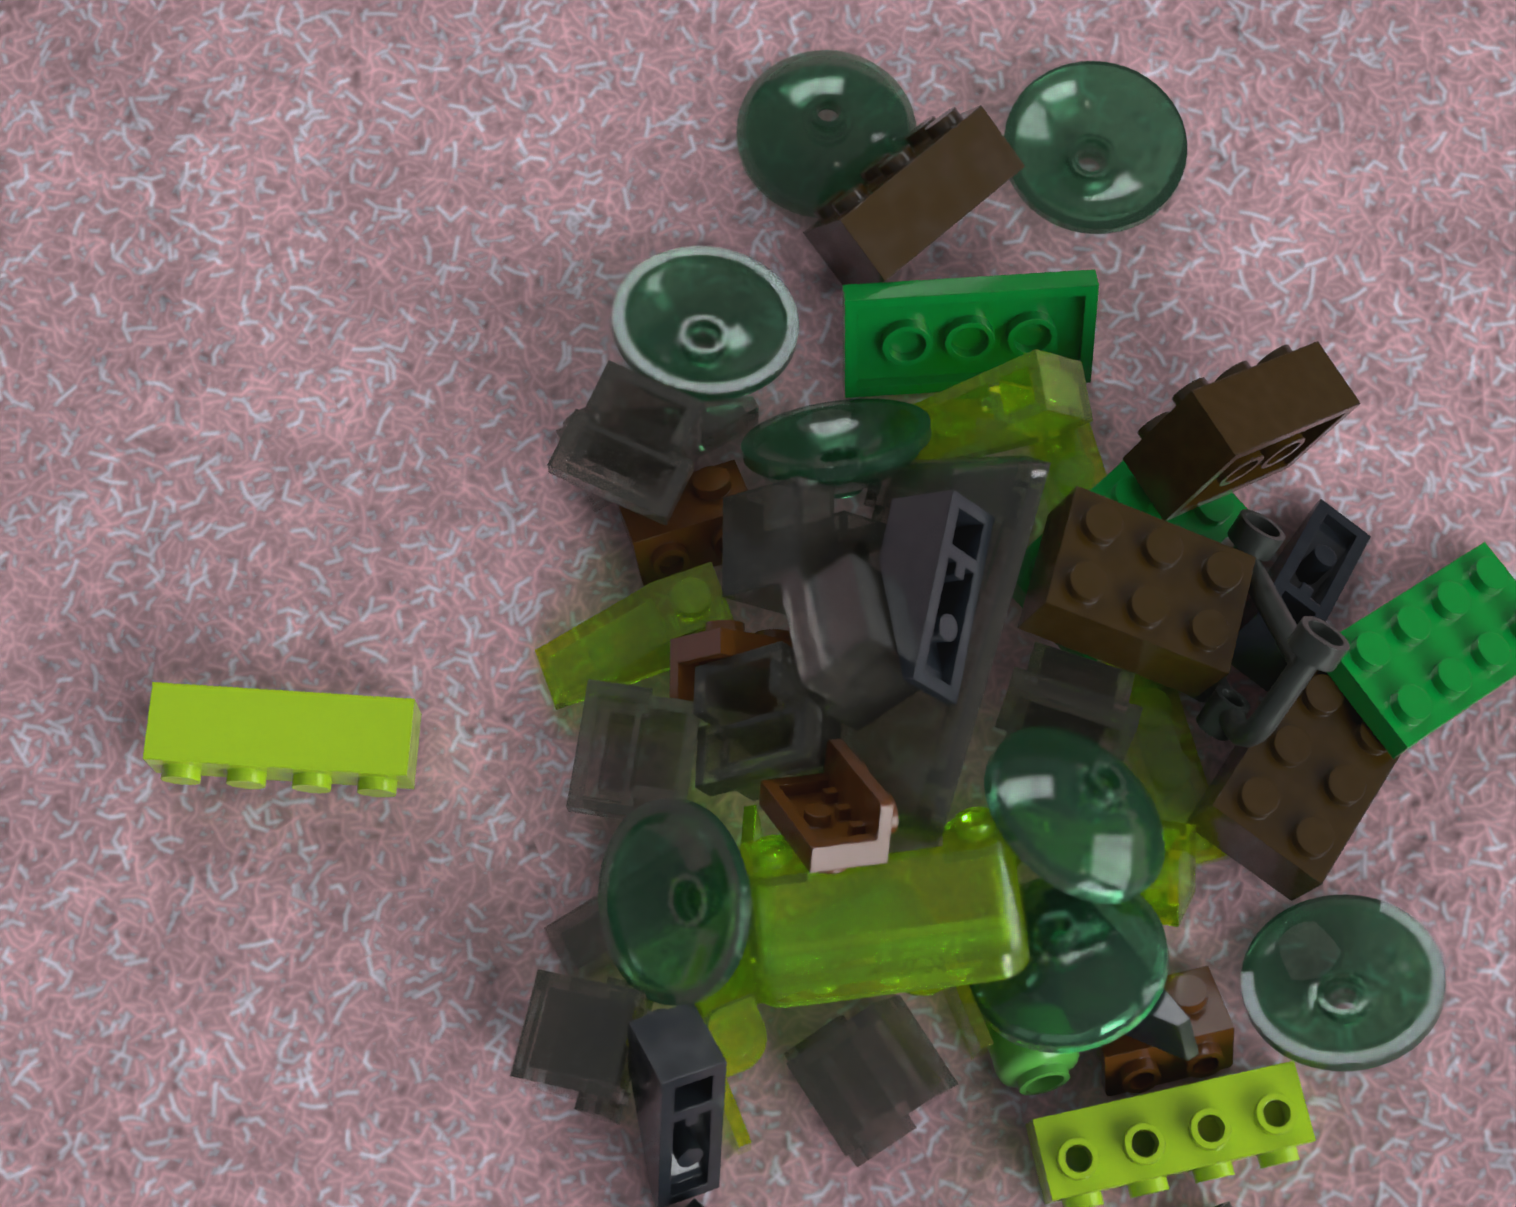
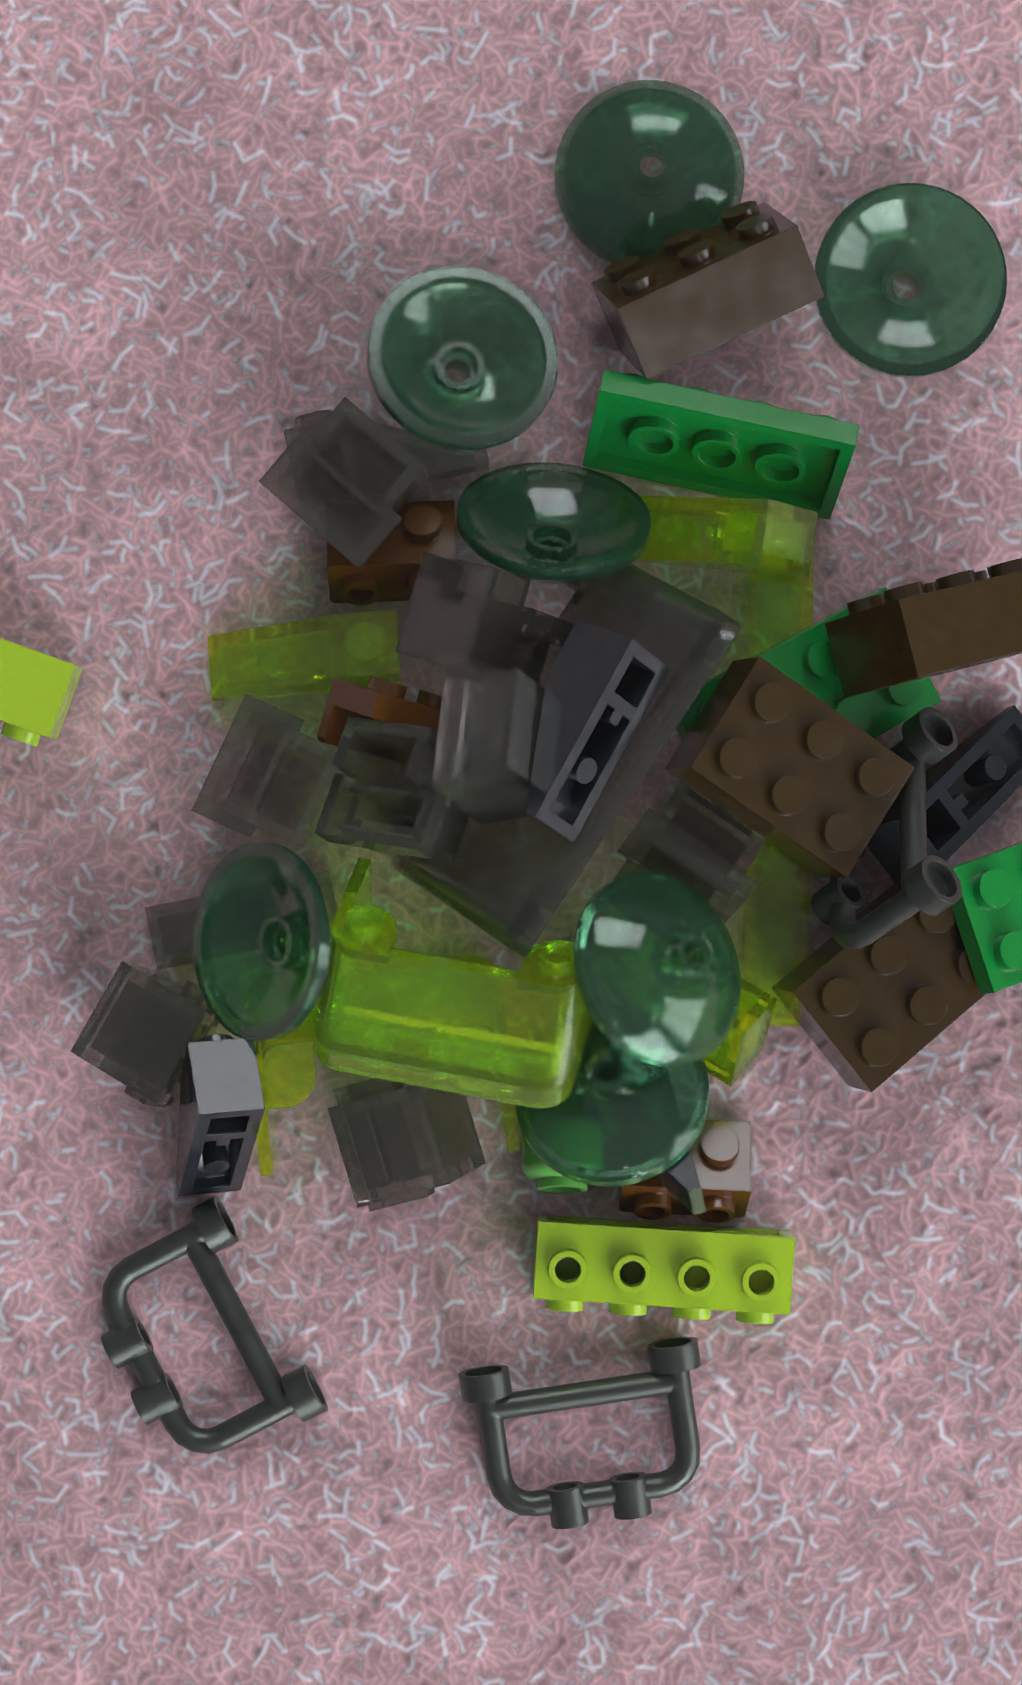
camera: 20 degrees right, 15 degrees up
(833, 816) = (427, 909): reddish brown bracket -> none
(1336, 954) = (875, 1144): clear green dish -> none

